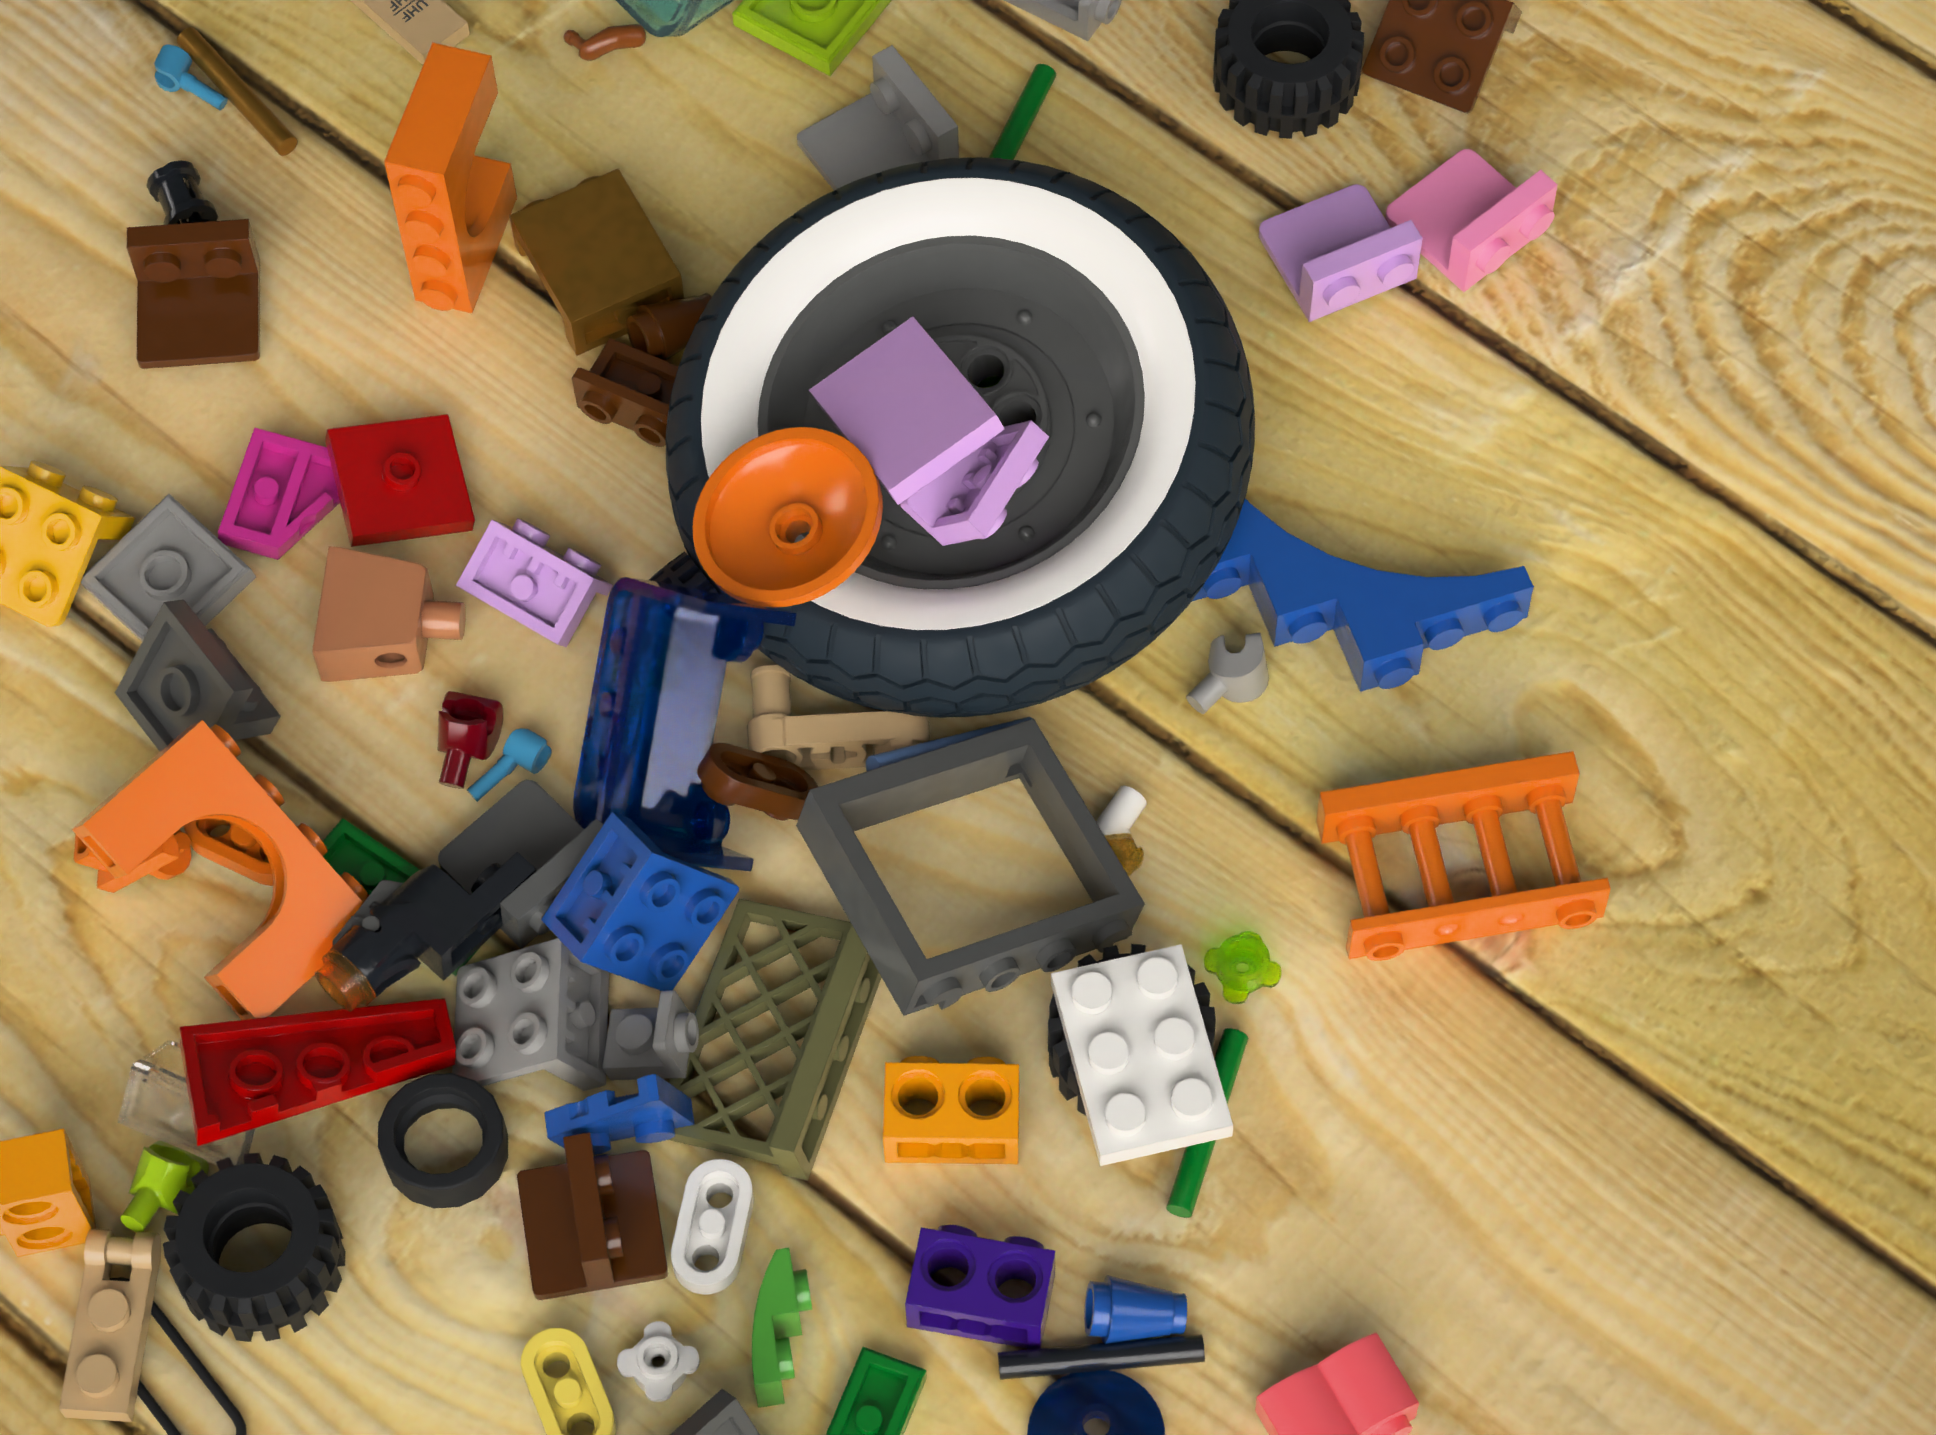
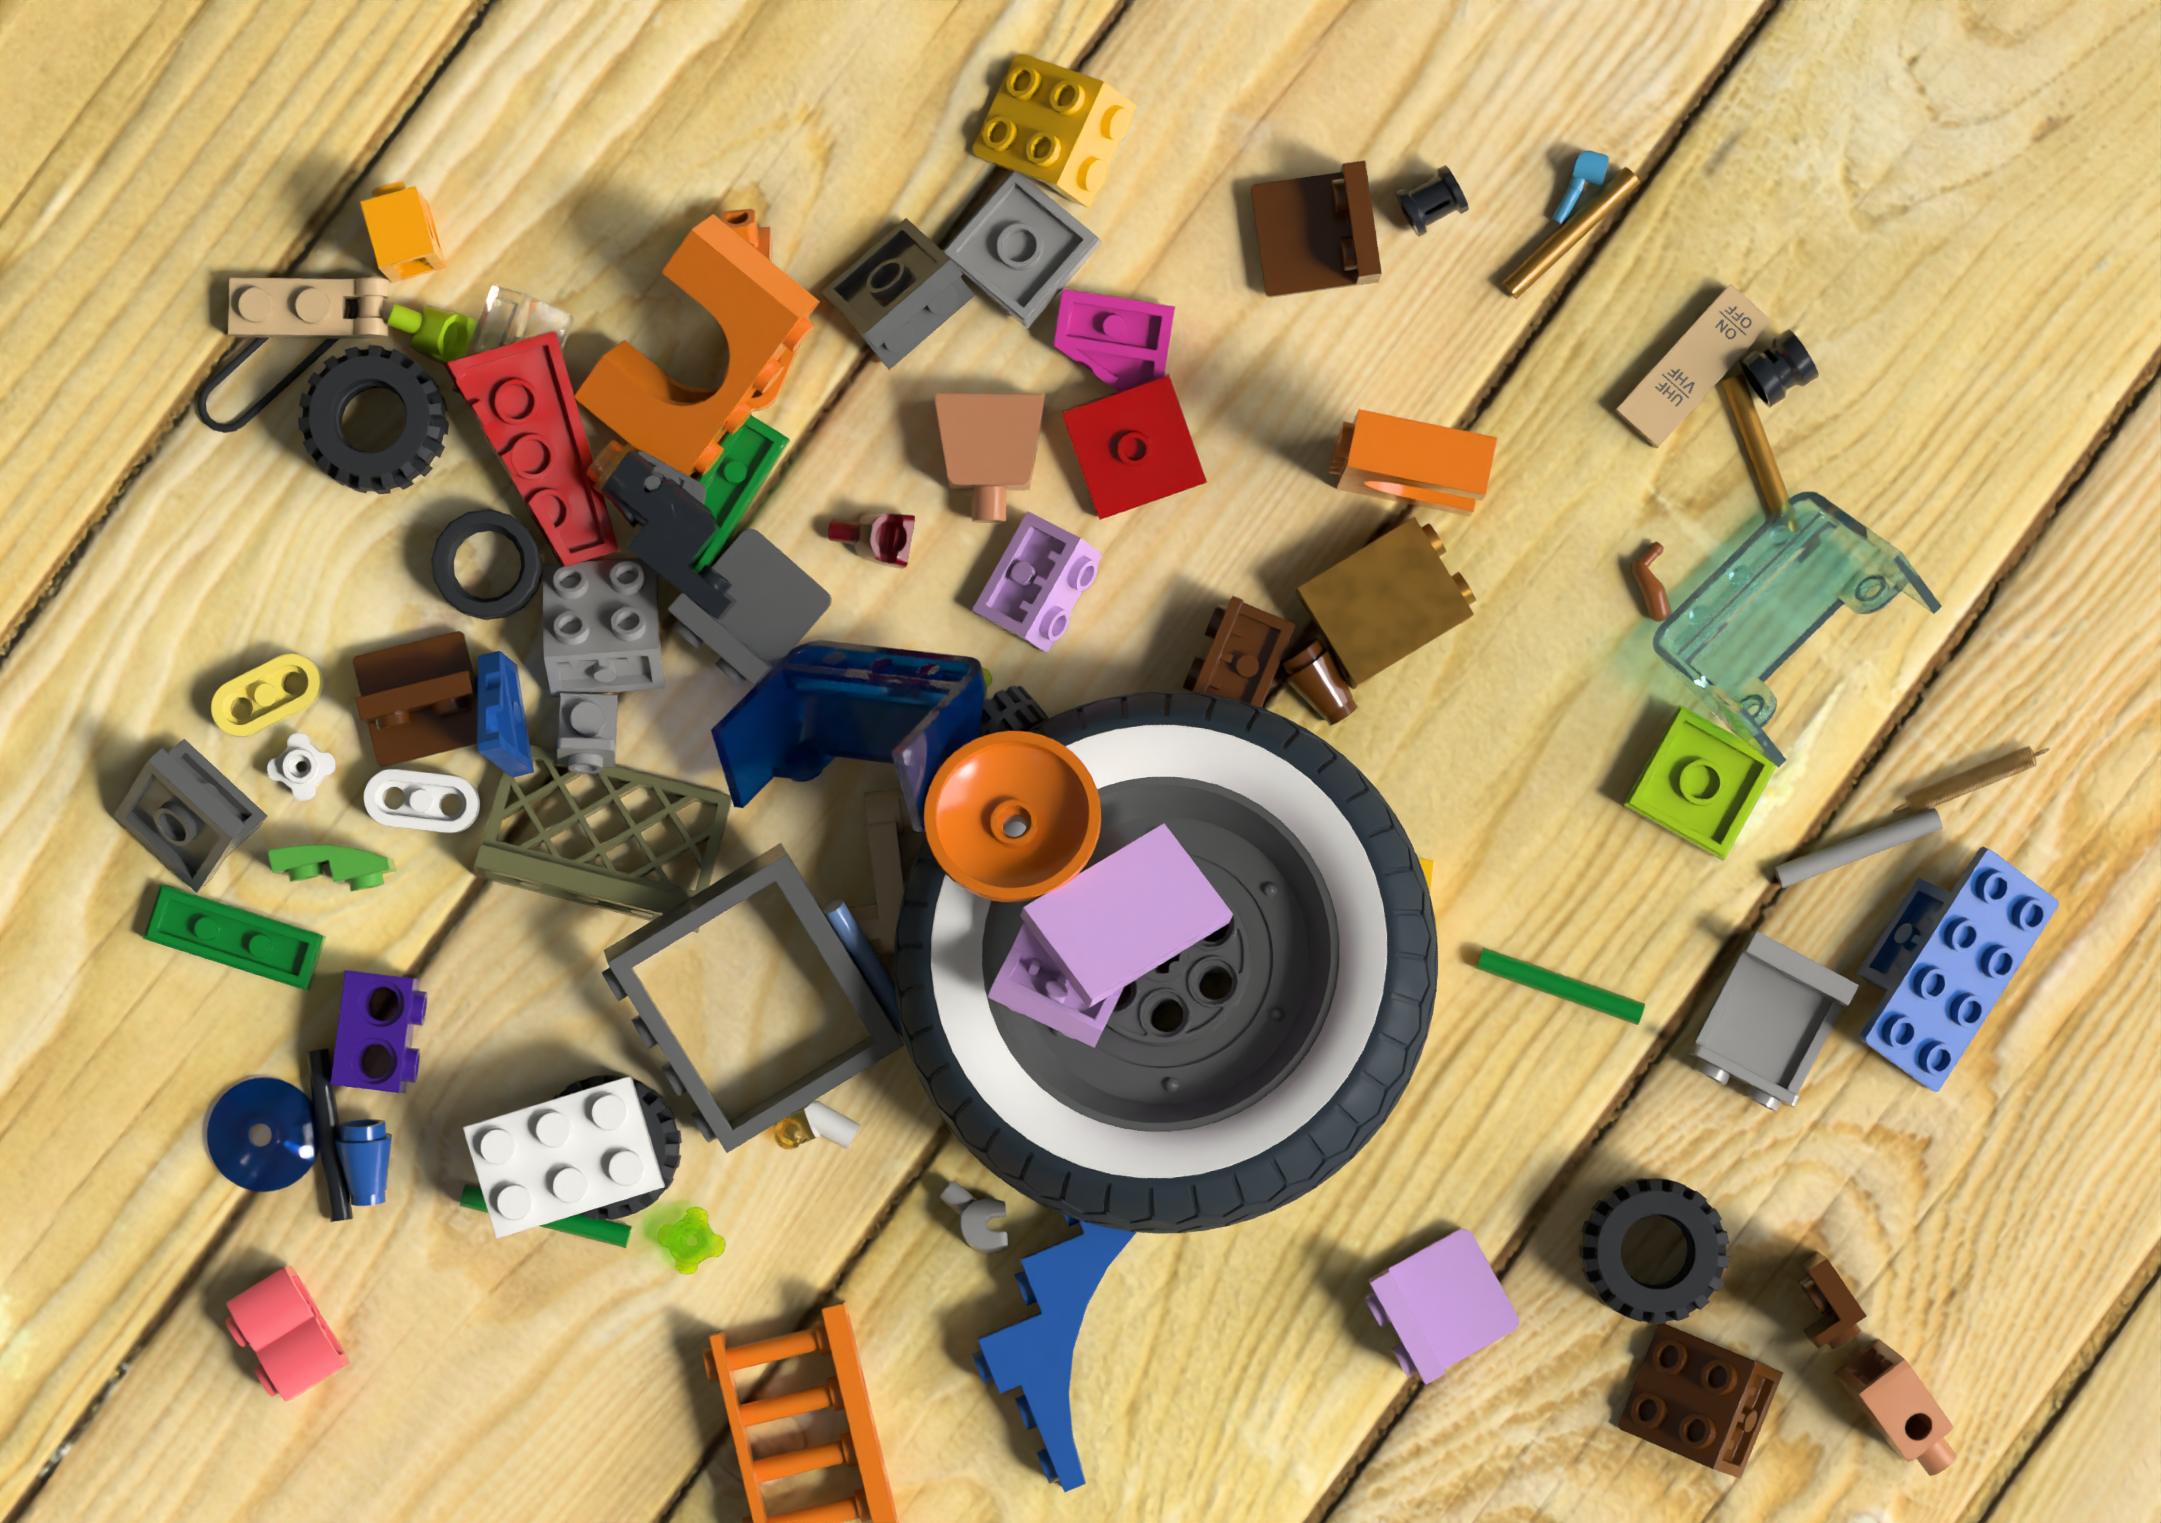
camera: 85 degrees right, 25 degrees up
(520, 749) = (867, 593): dark azure hand -> none
(637, 907) = (681, 701): blue bracket -> none
(754, 781) = (831, 792): reddish brown plate -> none
(884, 129) = (1535, 858): light grey bracket -> none
(951, 1129) = (519, 997): light orange brick -> none
(1474, 216) = (1487, 1429): bright pink bracket -> none

